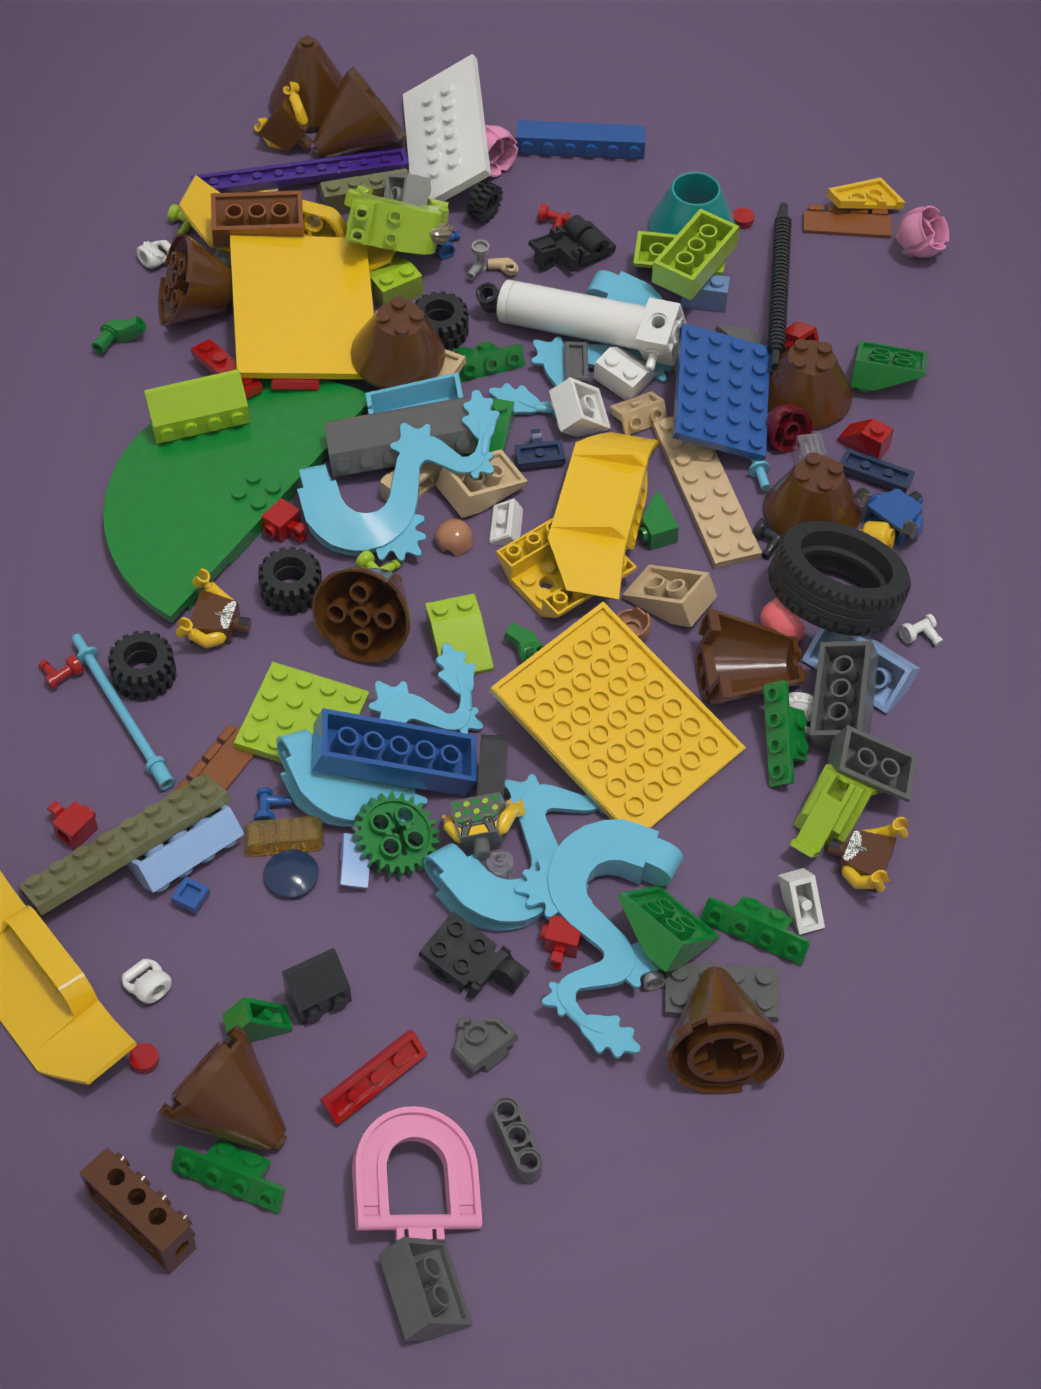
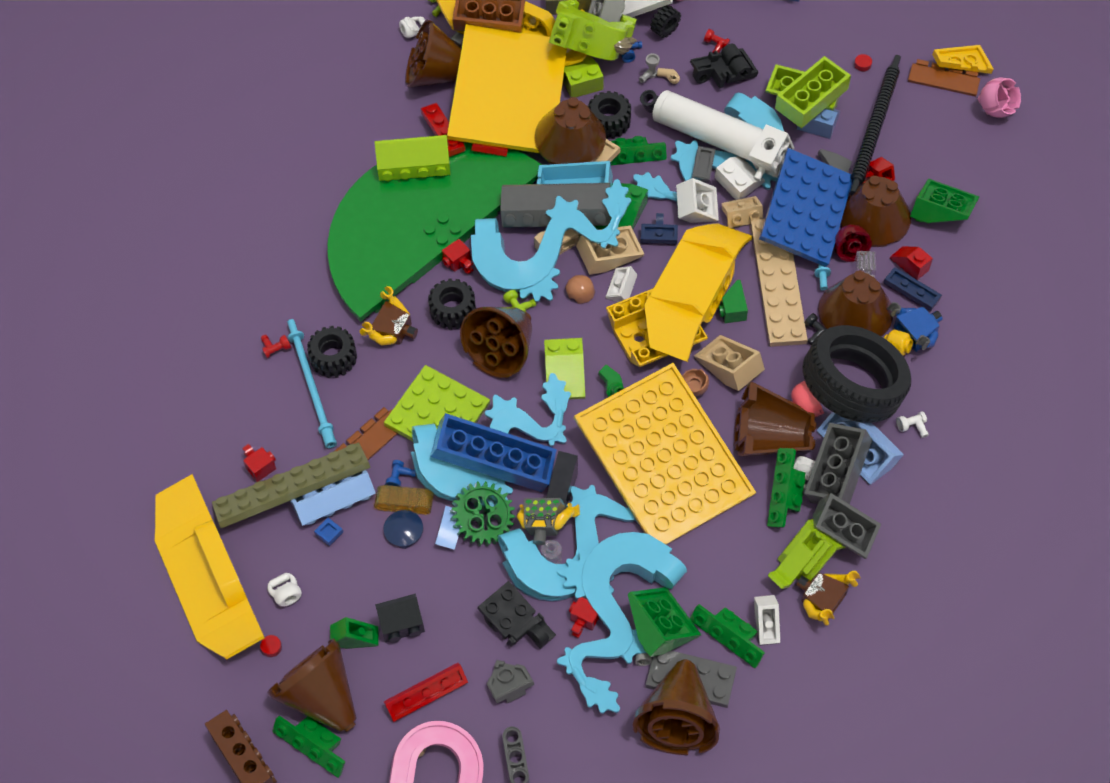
camera: 15 degrees right, 5 degrees up
(119, 332) = (371, 85): green arm -> none
(684, 199) = (822, 41): teal cone -> none

